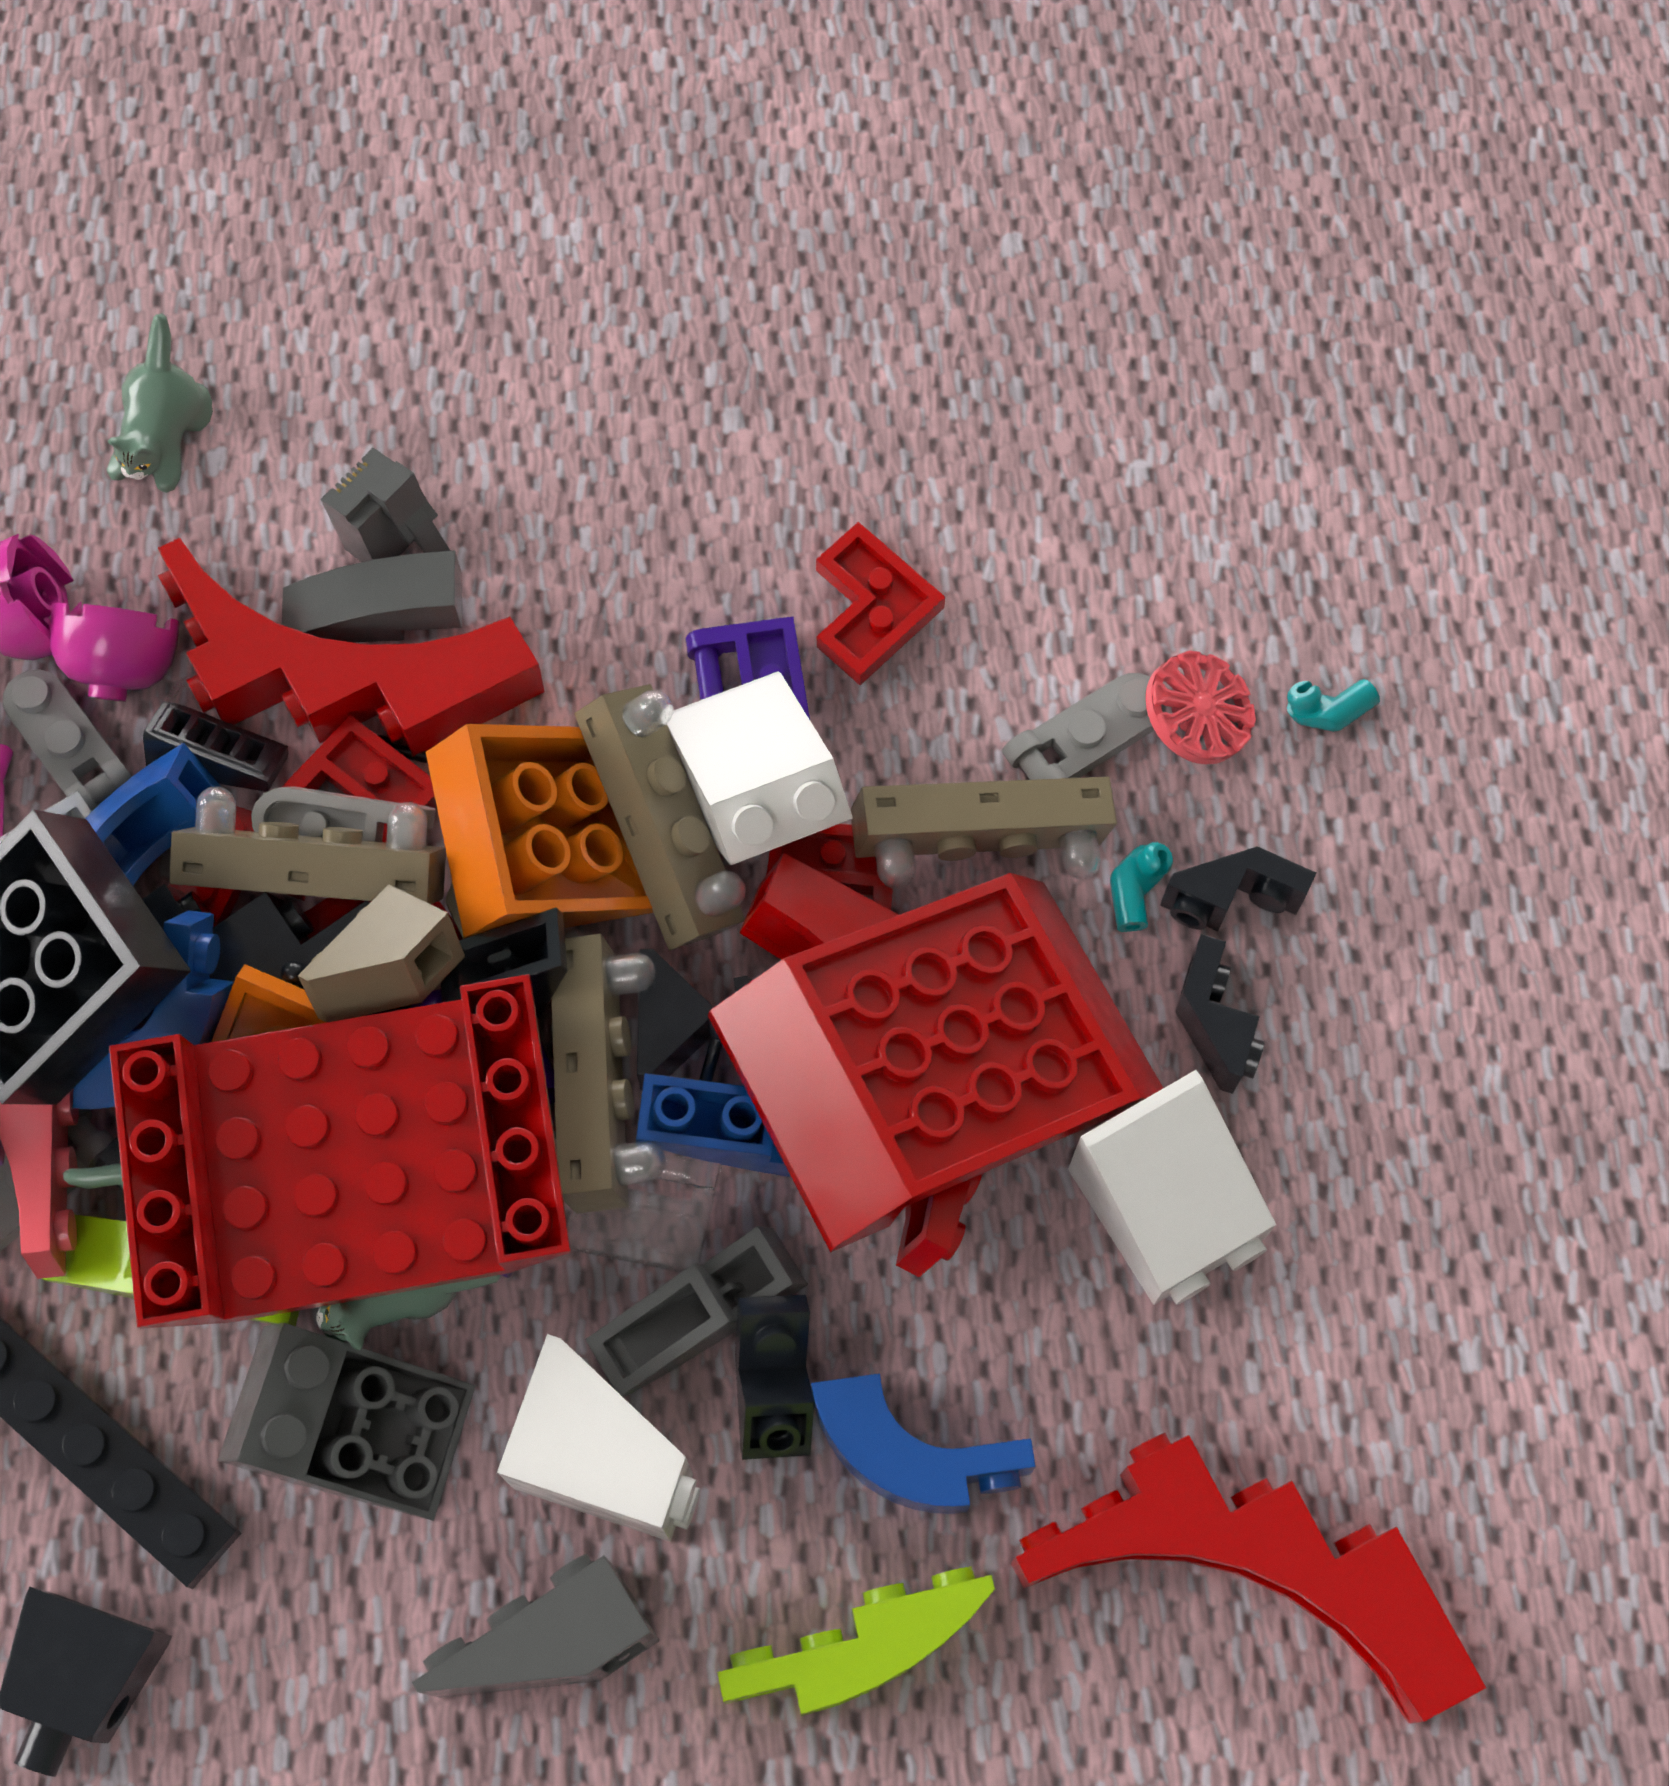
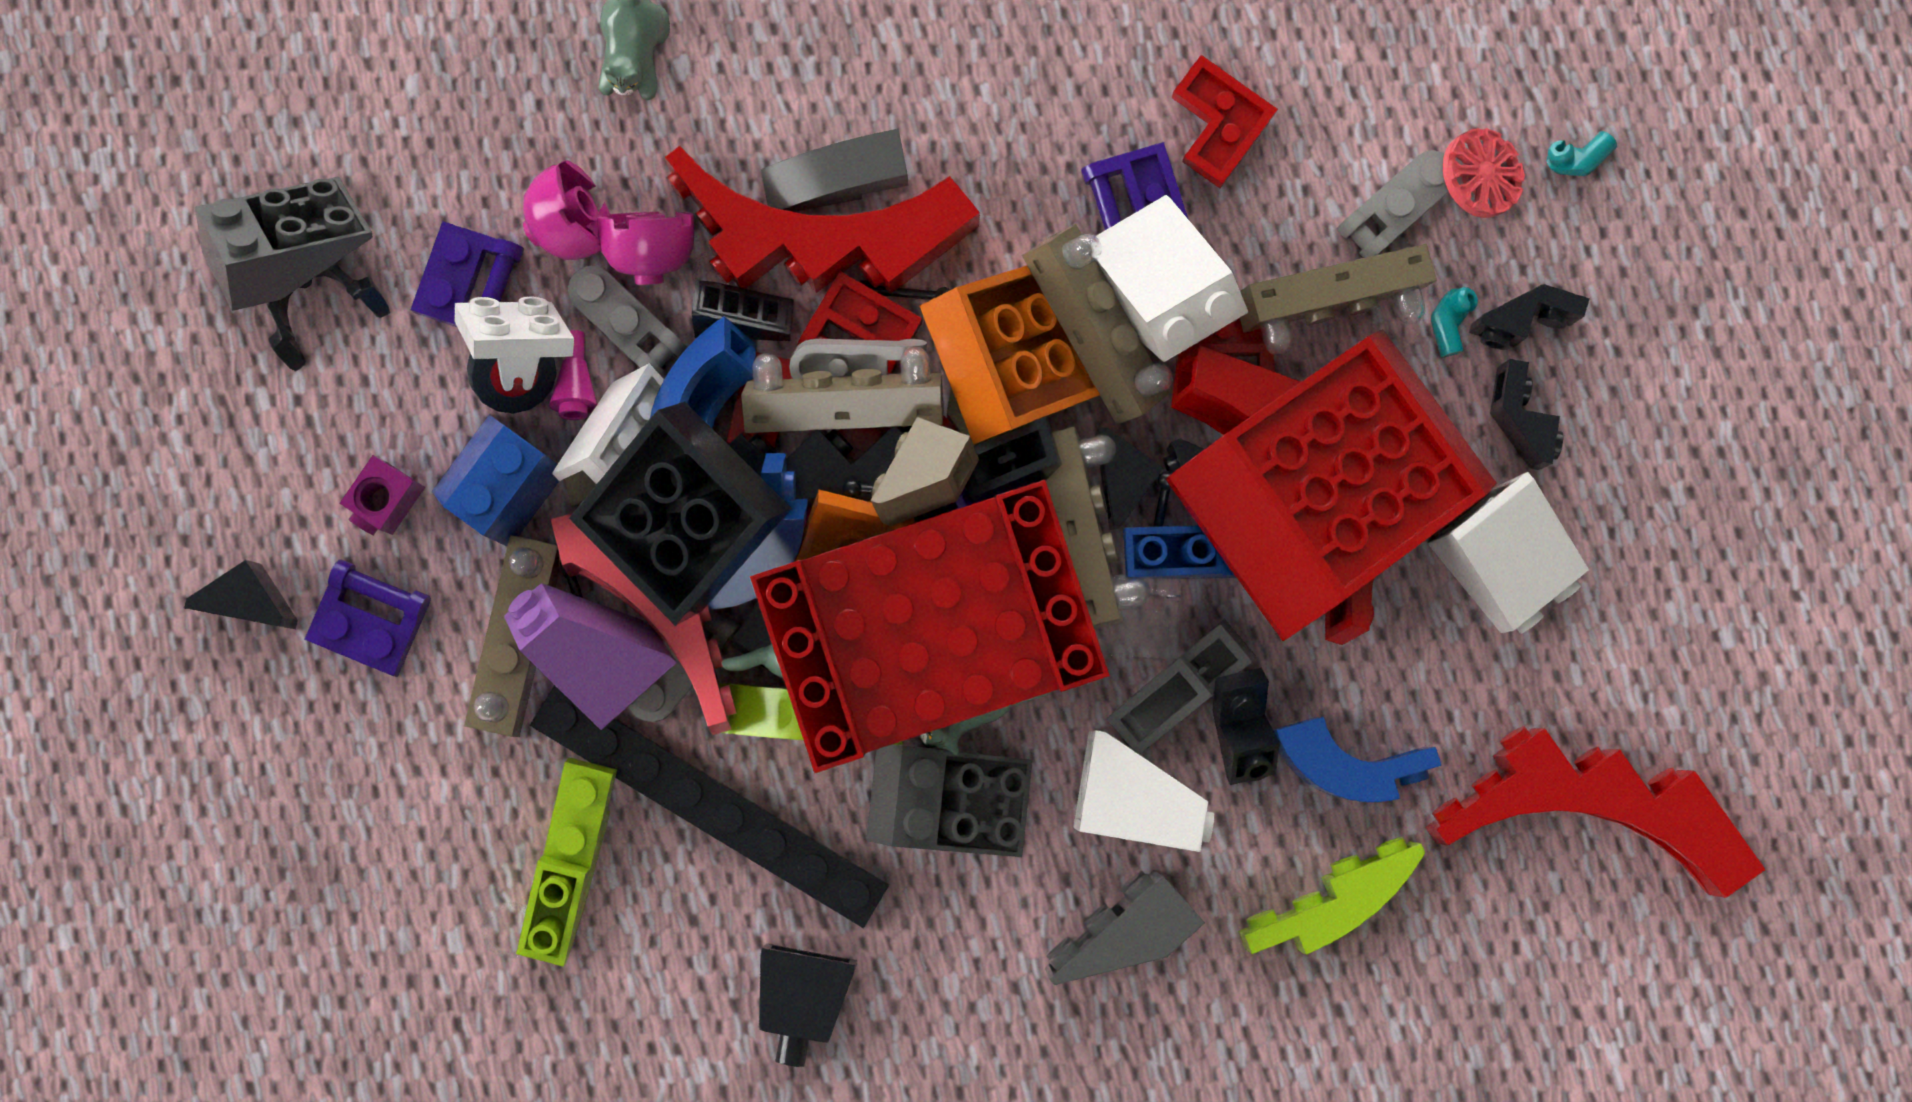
camera: 10 degrees left, 15 degrees up
(382, 510) = (830, 99): dark grey piece -> none

